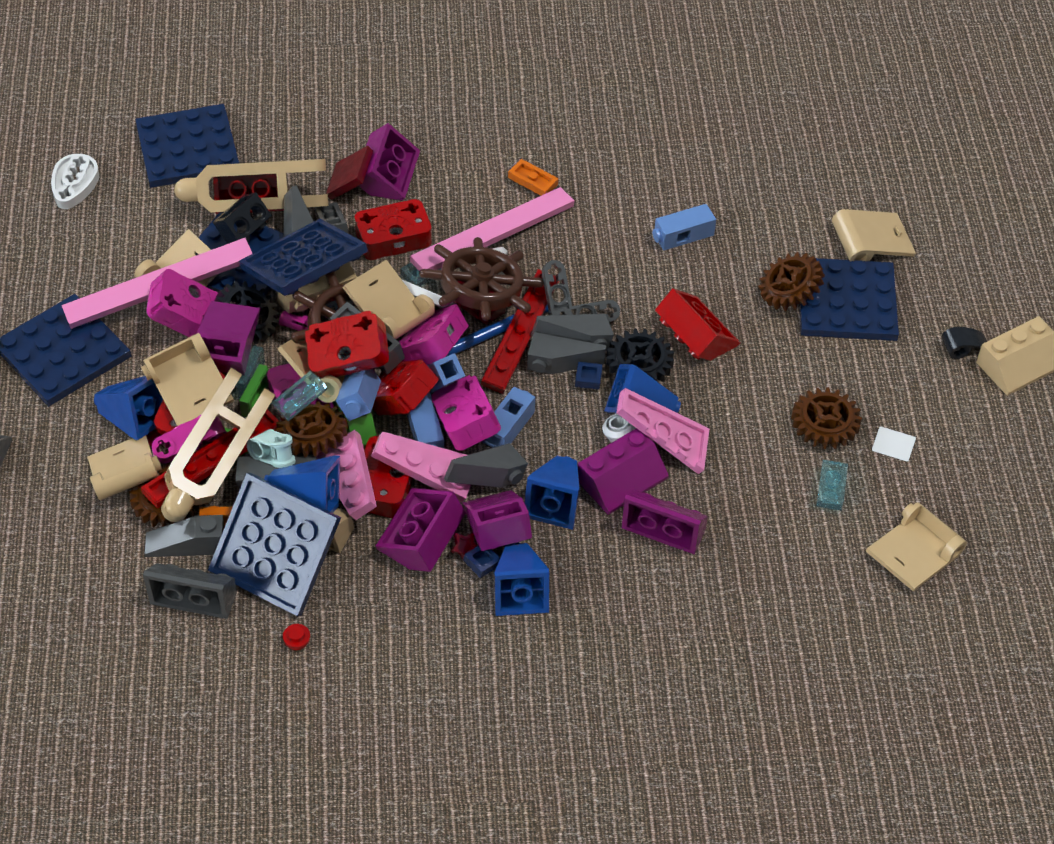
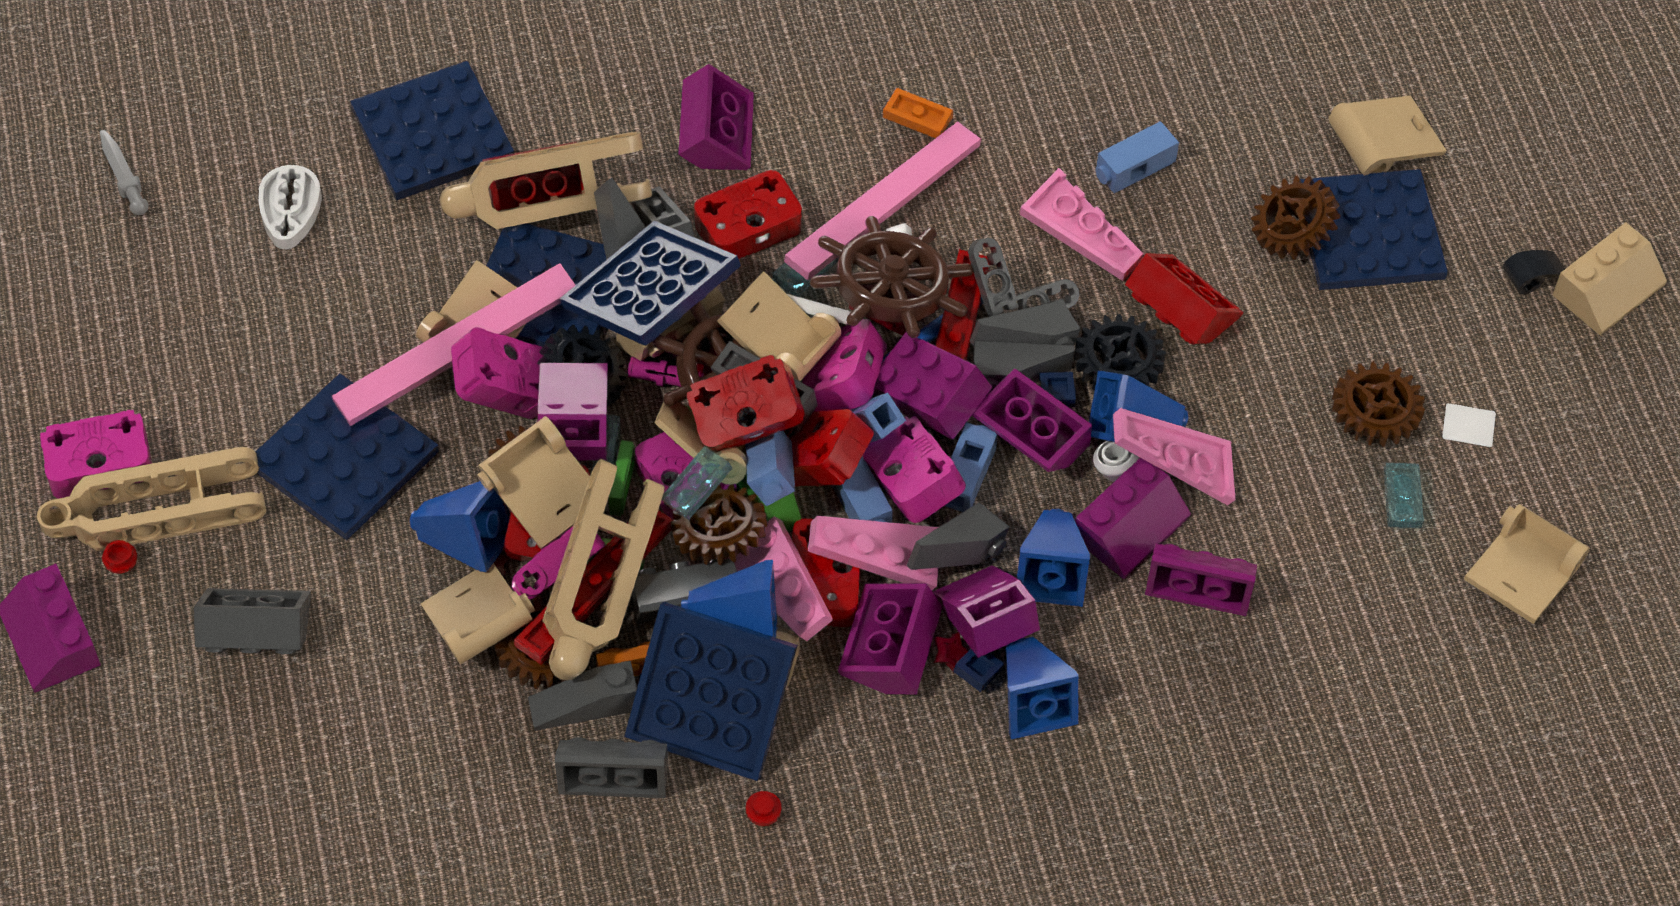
camera: 10 degrees left, 5 degrees up
(240, 215) = (546, 234): black brick -> none
(272, 448) = (677, 561): light aqua piece -> none
(349, 172) = (669, 142): dark red tile -> none
(492, 356) = (931, 385): none -> magenta brick
(564, 394) = (1034, 422): none -> magenta slope
(626, 261) = (1075, 222): none -> bright pink wing

